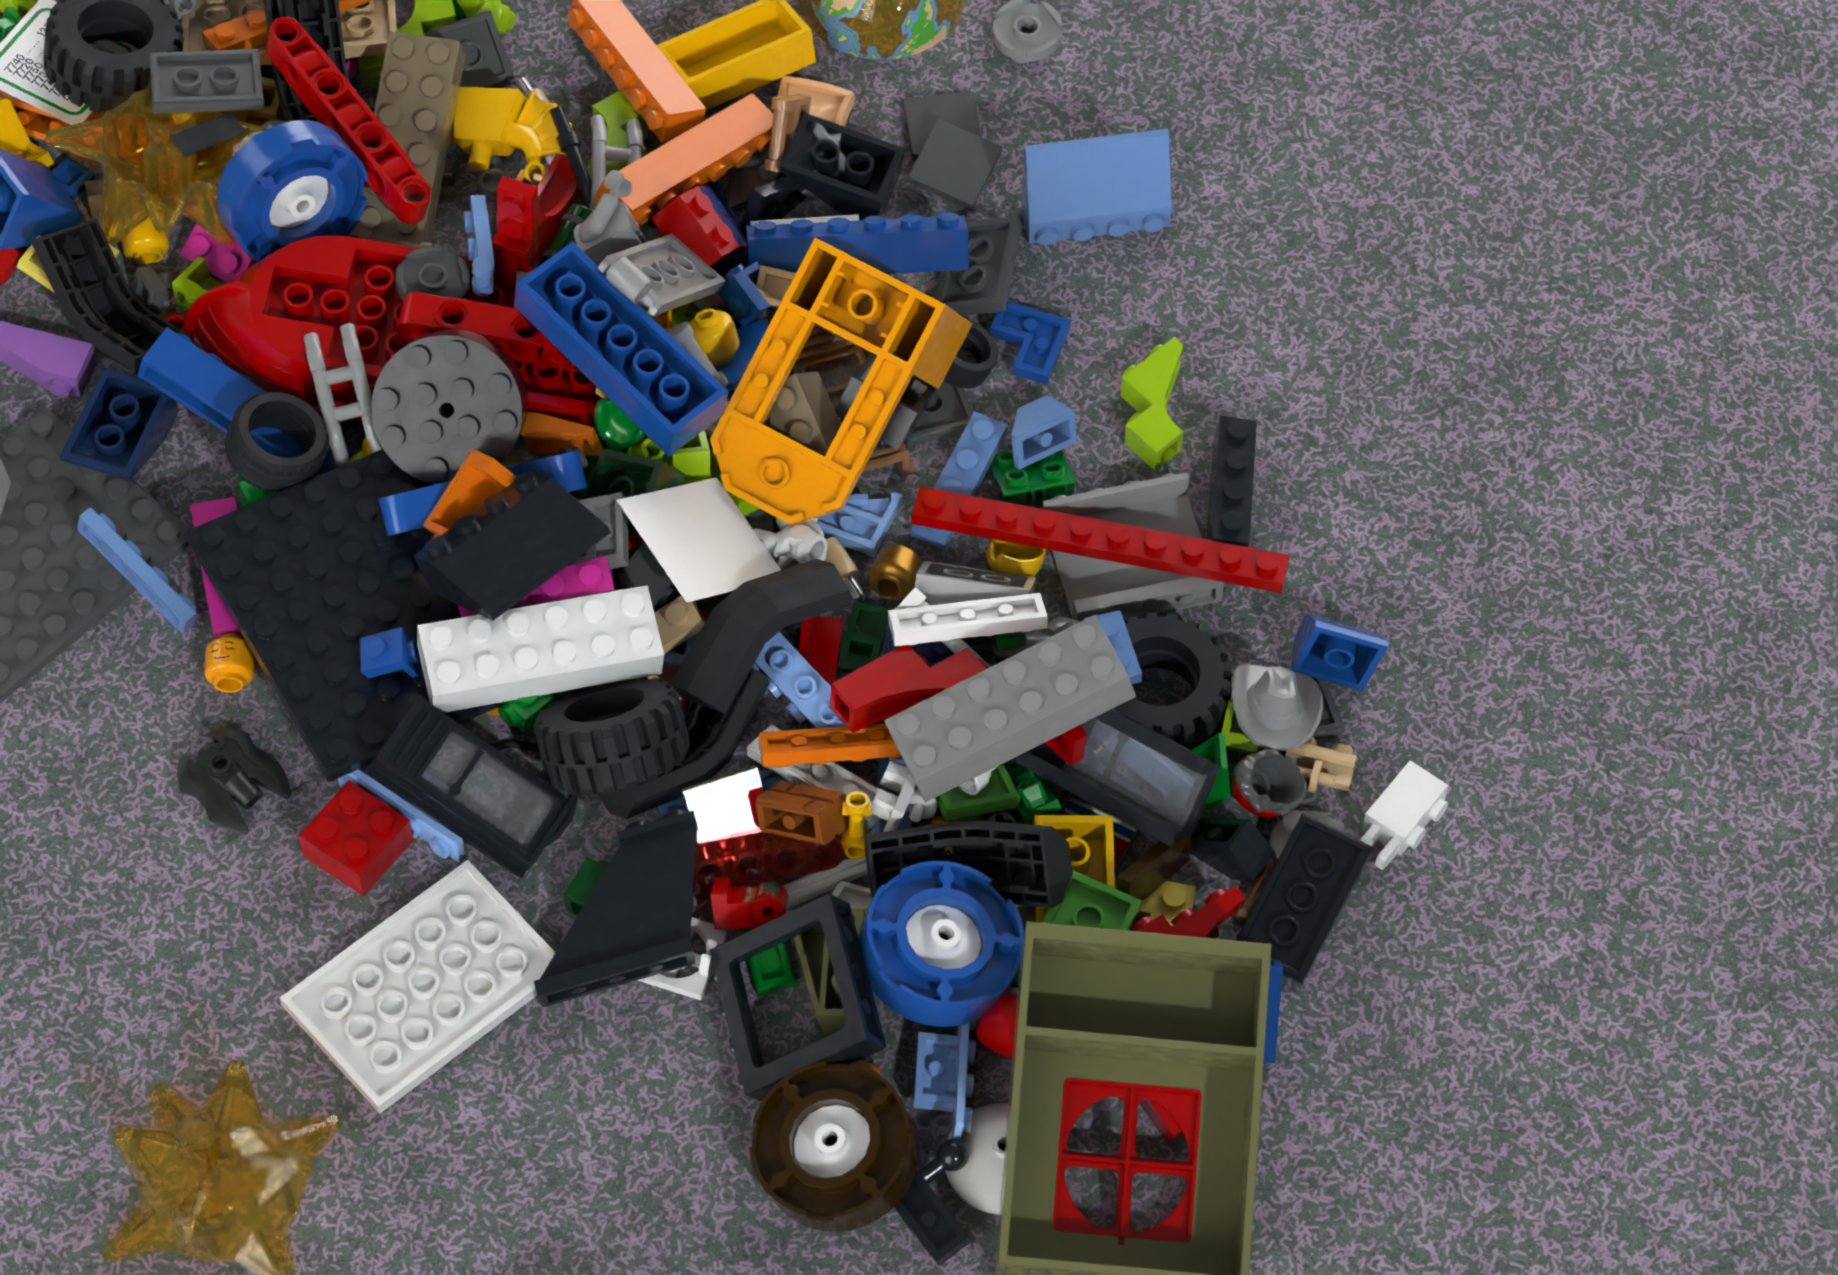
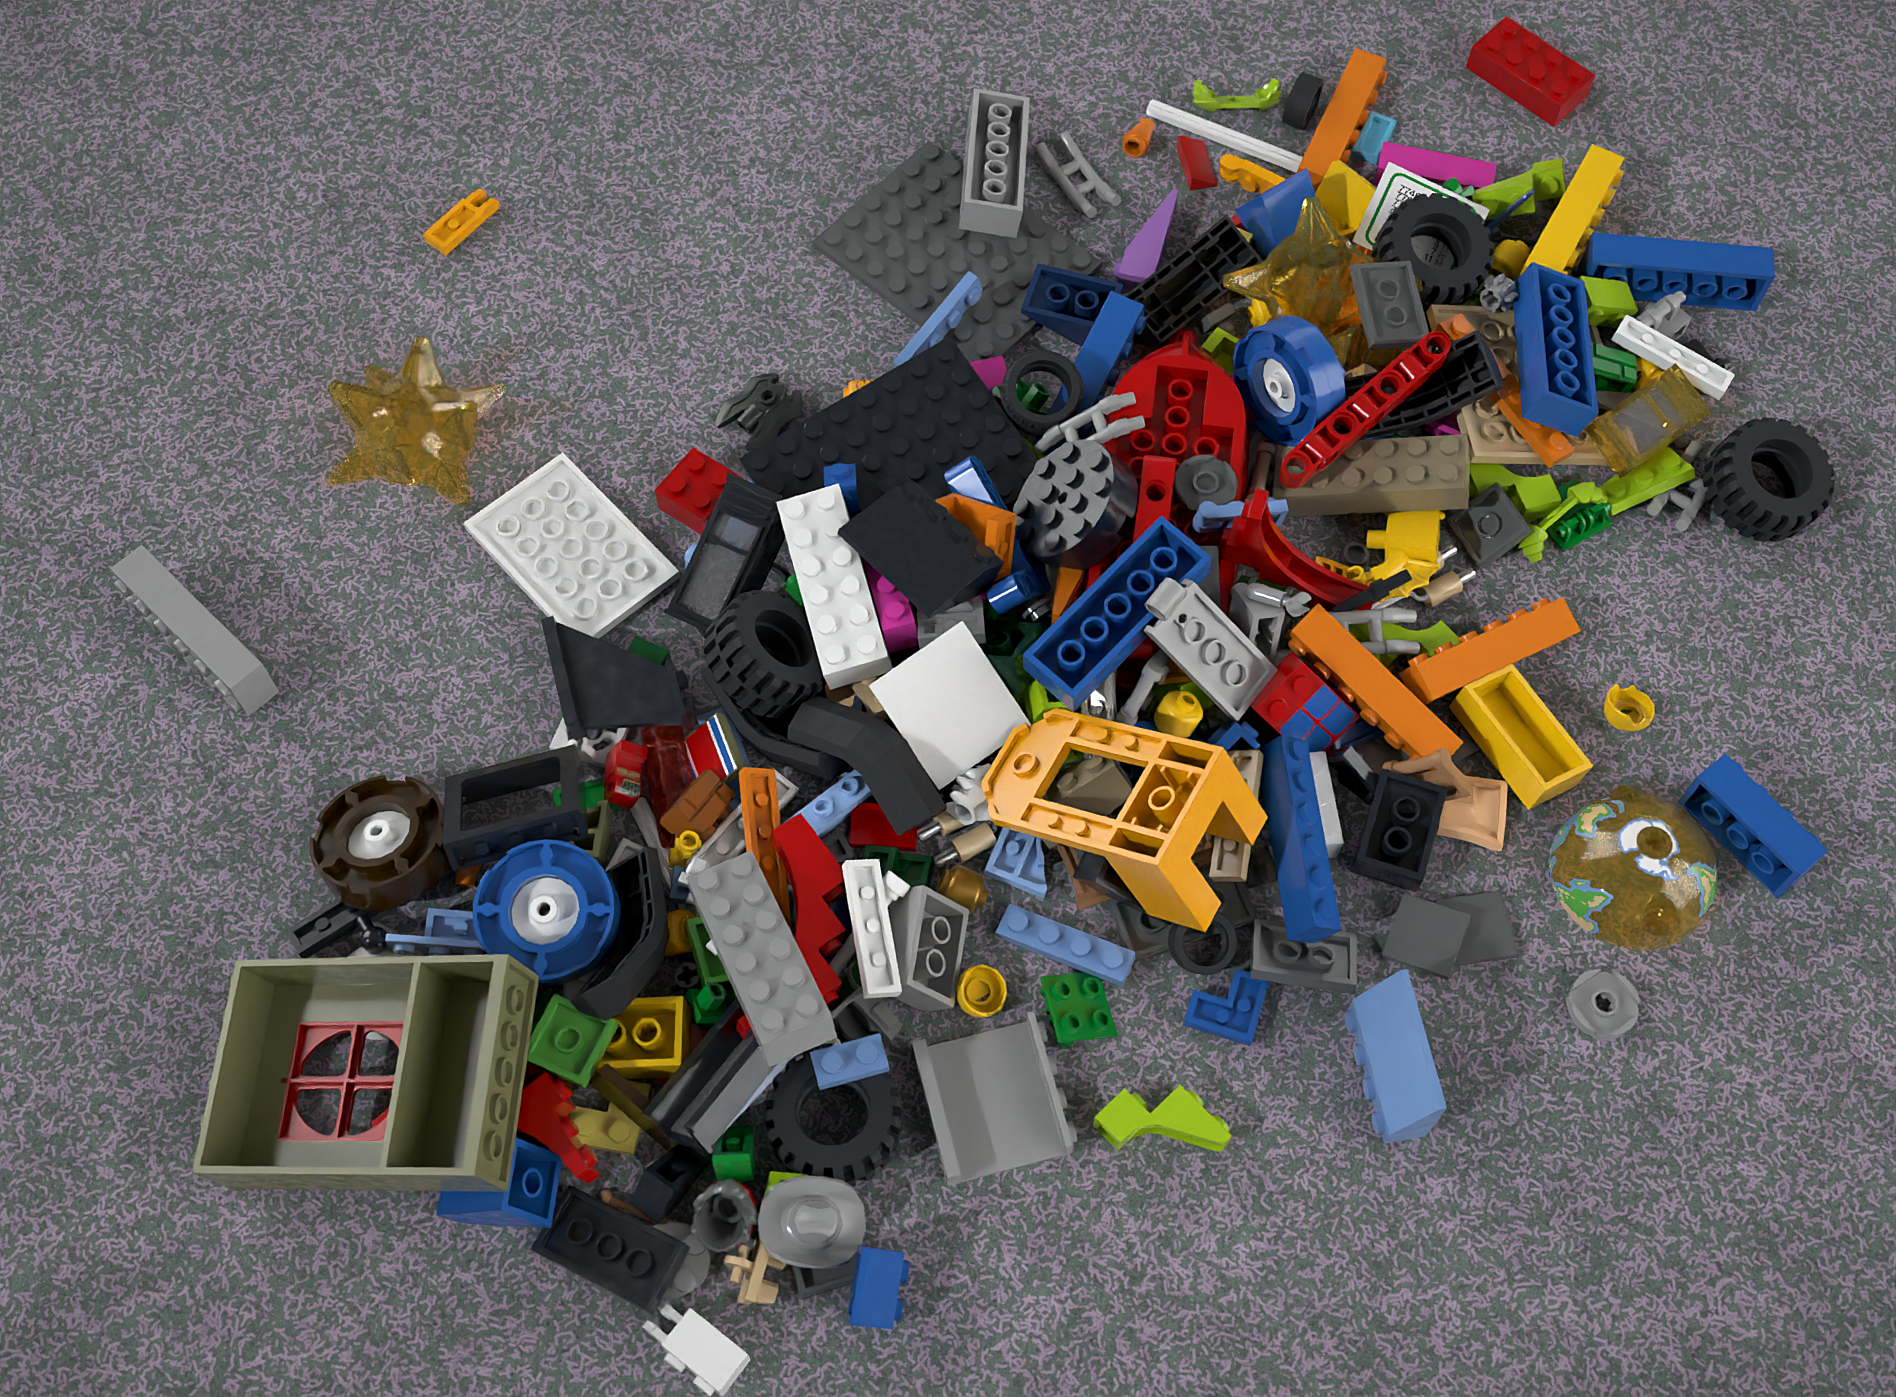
camera: 90 degrees right, 5 degrees up
(208, 134) = (1332, 309): black sticker -> none
(1042, 430) = (1113, 1007): medium blue slope -> none
(1100, 539) = (989, 1069): red plate -> none
(1232, 481) = (1059, 1190): black brick -> none

